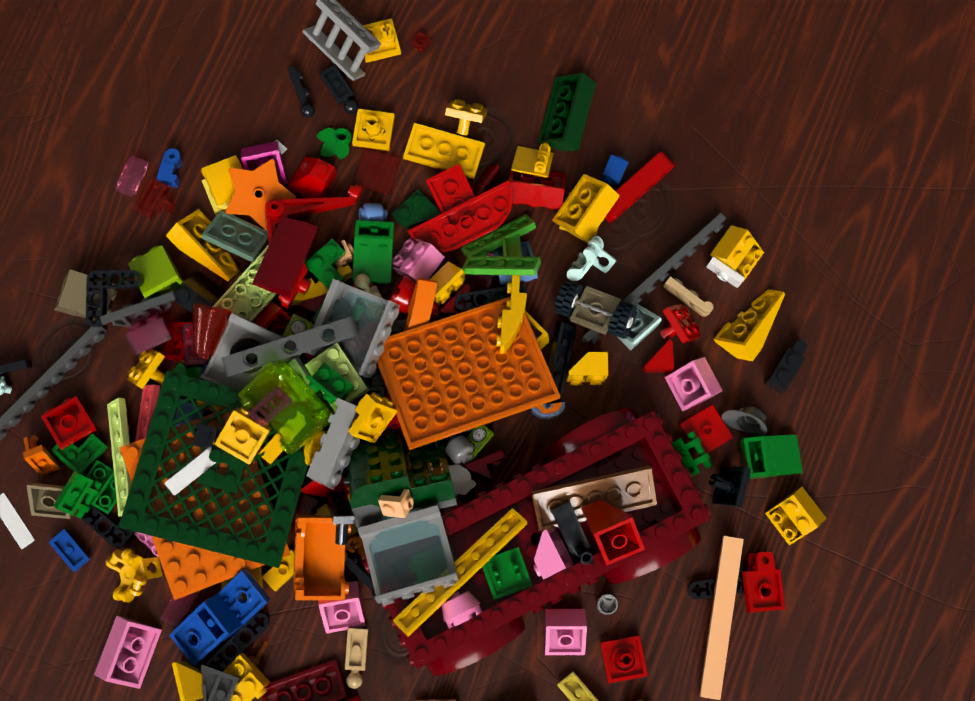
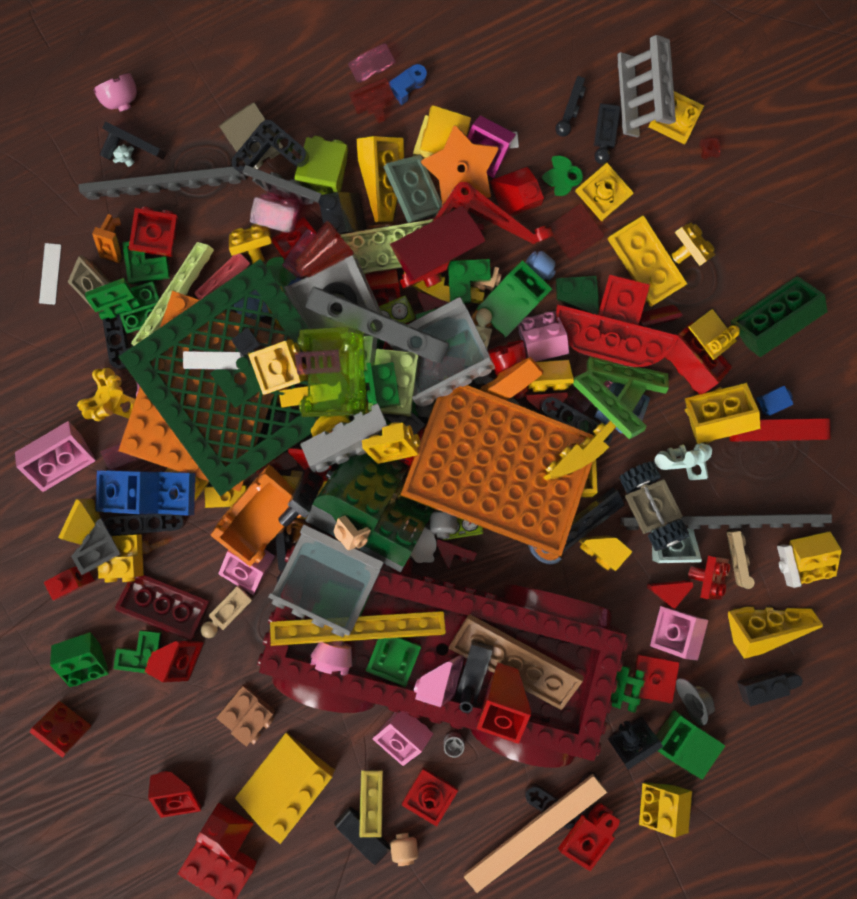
camera: 45 degrees right, 10 degrees up
(69, 550) = (74, 336): blue plate -> none

